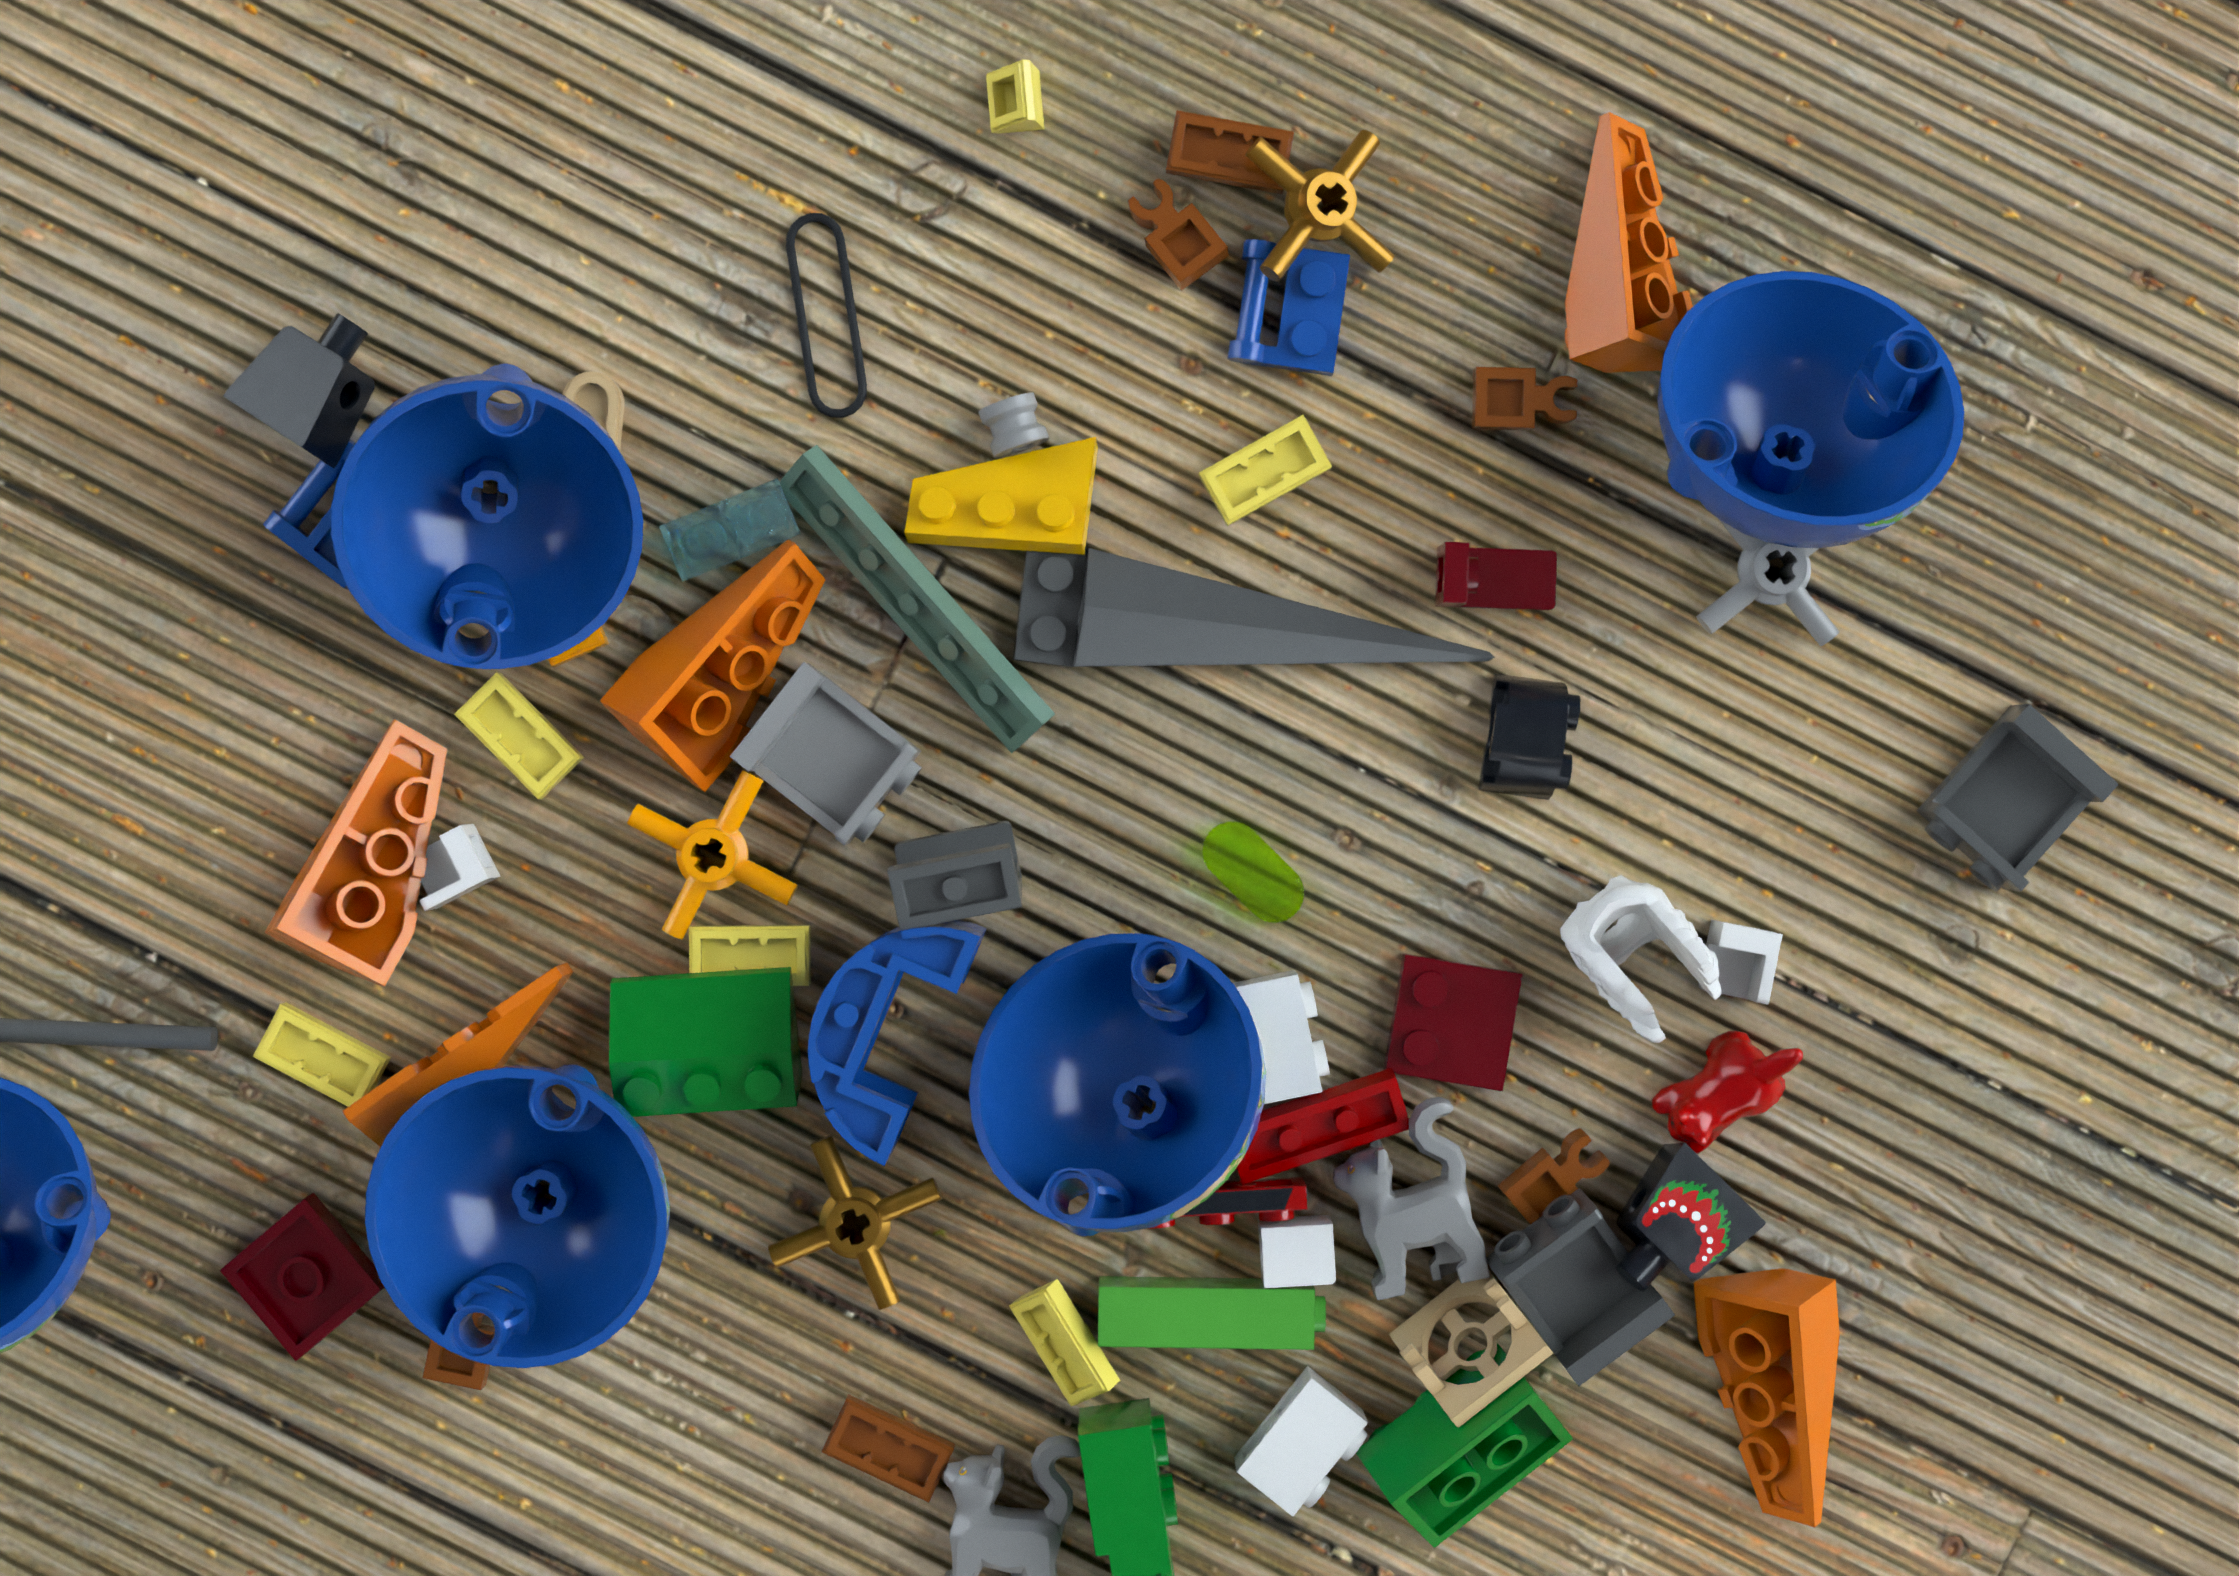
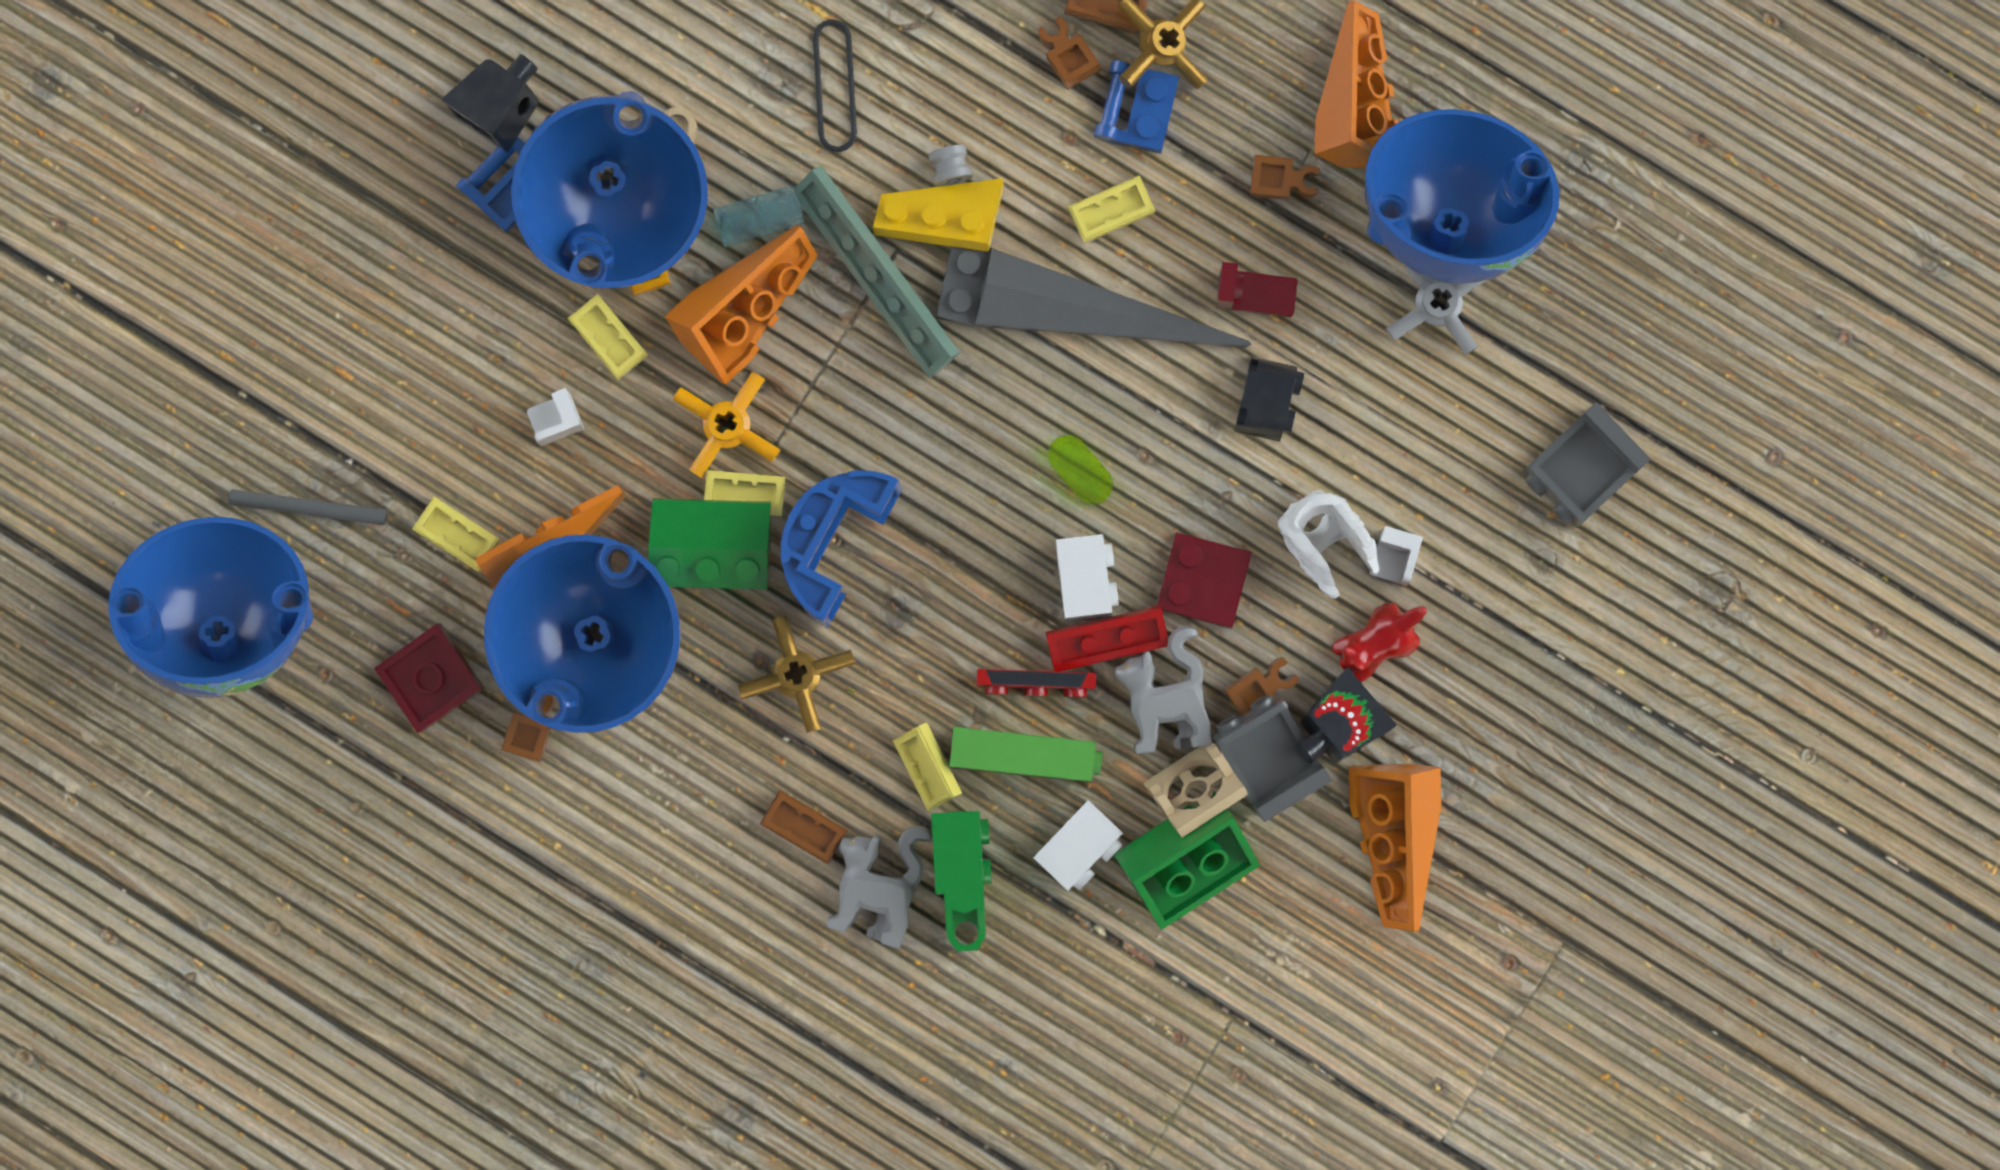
camera: 10 degrees right, 5 degrees down
(365, 874) = (496, 420): orange wedge -> none
(828, 755) = (808, 367): light grey panel -> none
(955, 875) = (885, 446): dark grey panel -> none
(1080, 1056) = (969, 598): blue piece -> none
(1297, 1252) = (1086, 719): white panel -> none

